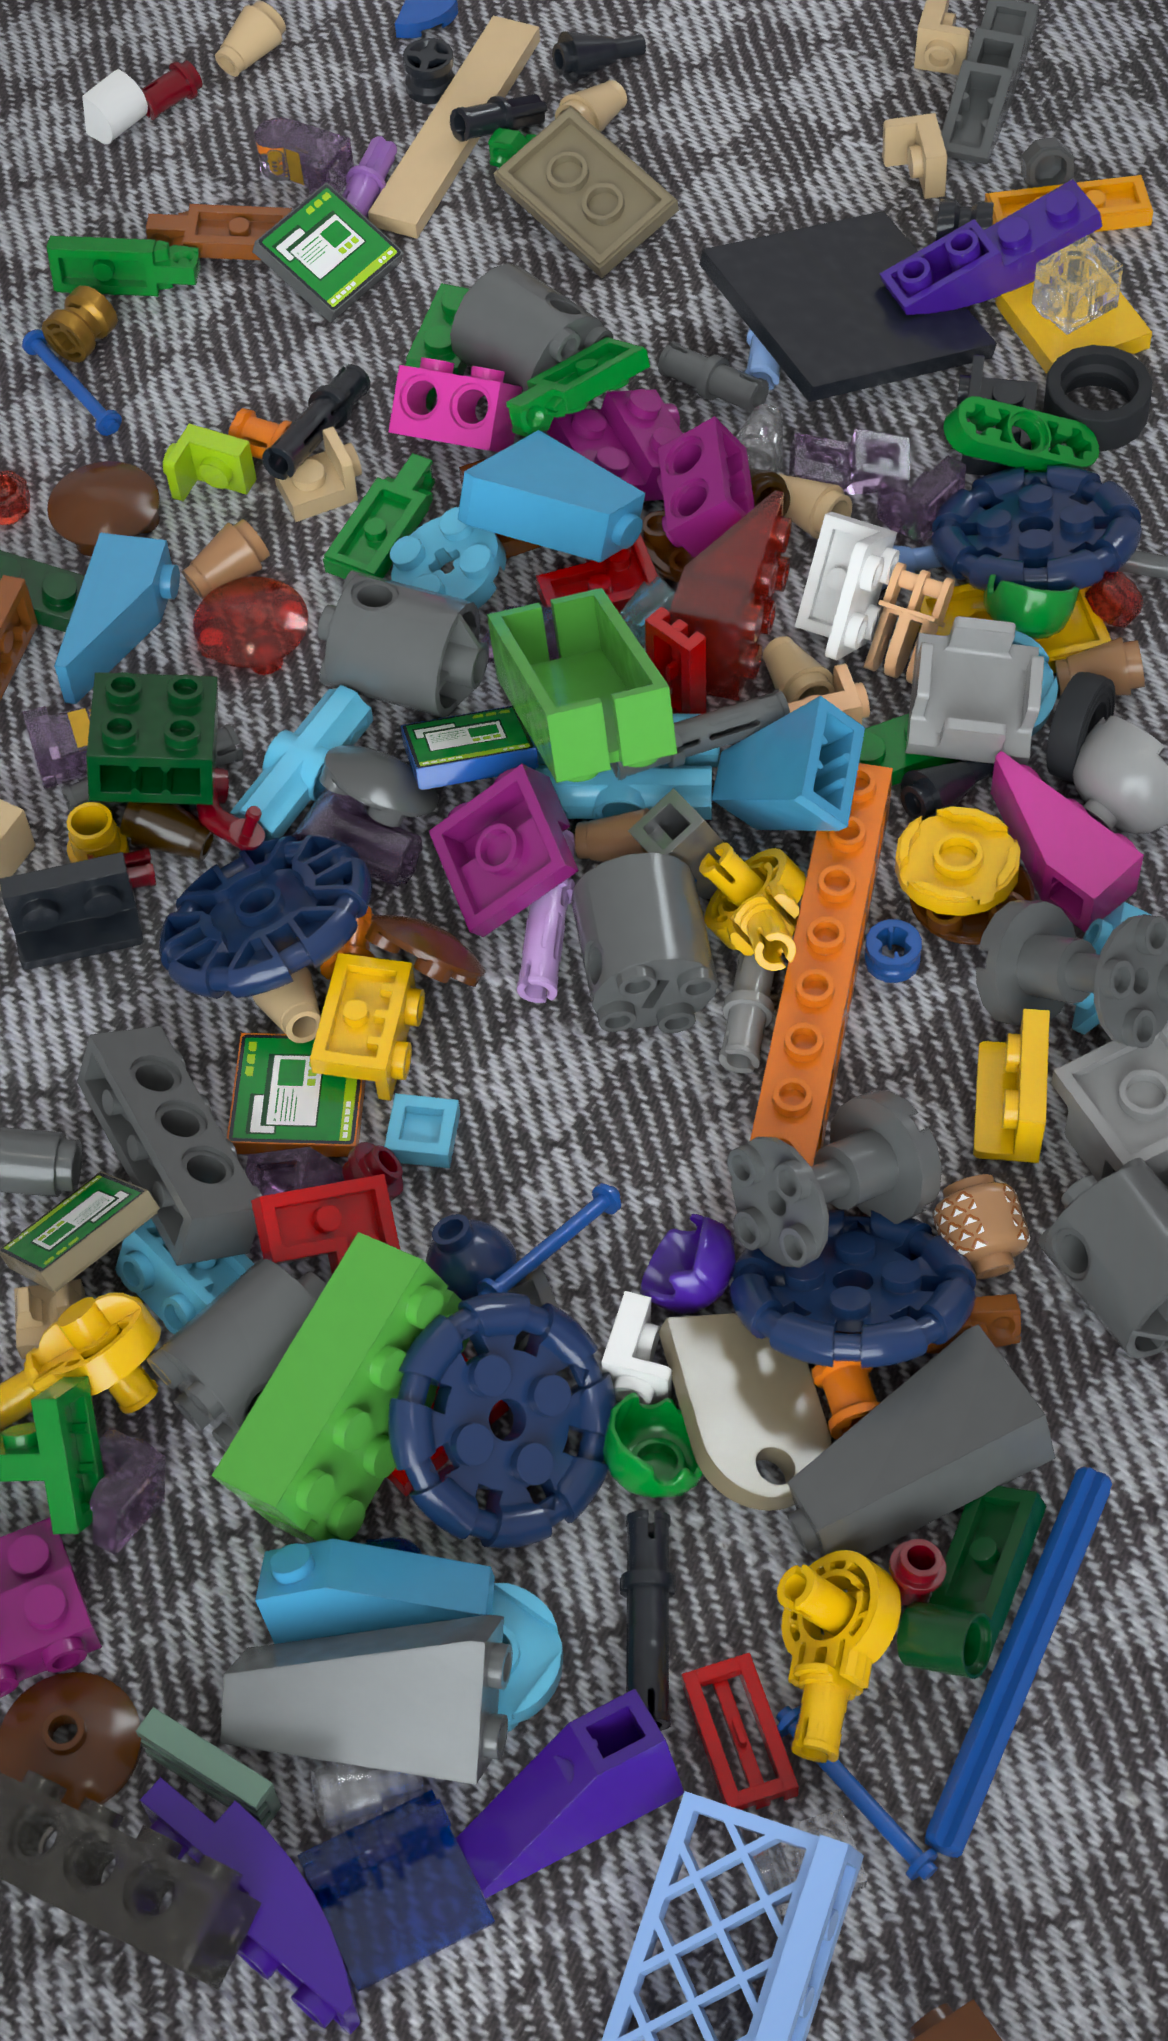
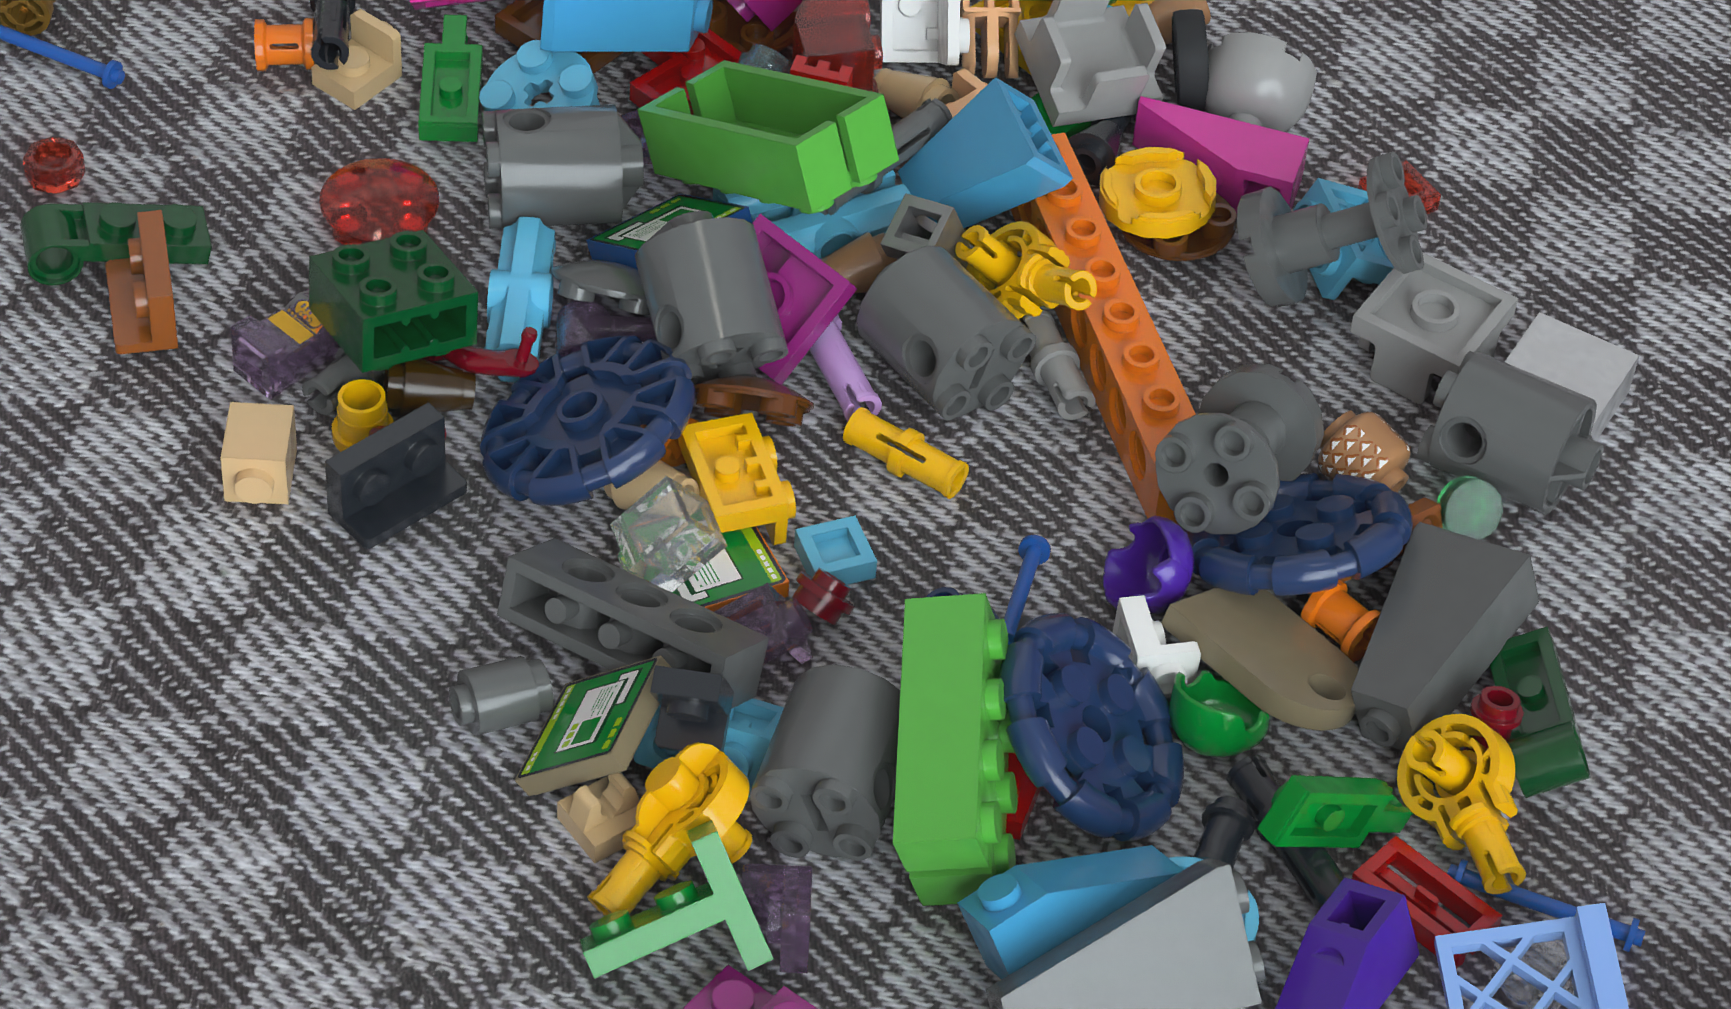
camera: 35 degrees left, 10 degrees down
(103, 499) = (160, 145): reddish brown dish -> none
(115, 608) = (244, 217): dark azure slope -> none
(140, 1254) = (692, 708): none -> black bracket
(210, 458) = (247, 74): lime bracket -> none
(227, 557) = (323, 149): medium nougat cone -> none
(249, 1064) = (667, 535): none -> clear brick
(324, 1220) = (834, 630): red plate -> none
(424, 835) = (711, 296): none -> dark grey cylinder
(550, 1051) = (939, 469): none -> yellow pin
(580, 1581) = (1226, 827): none -> black pin
(684, 1608) = (1331, 812): none -> green hinge
(891, 933) = (1154, 274): blue bush -> none
(1013, 1092) = (1325, 346): yellow bracket -> none
(1017, 1664) = (1609, 778): blue axle -> none
(1056, 1323) = (1470, 507): none -> clear green tile

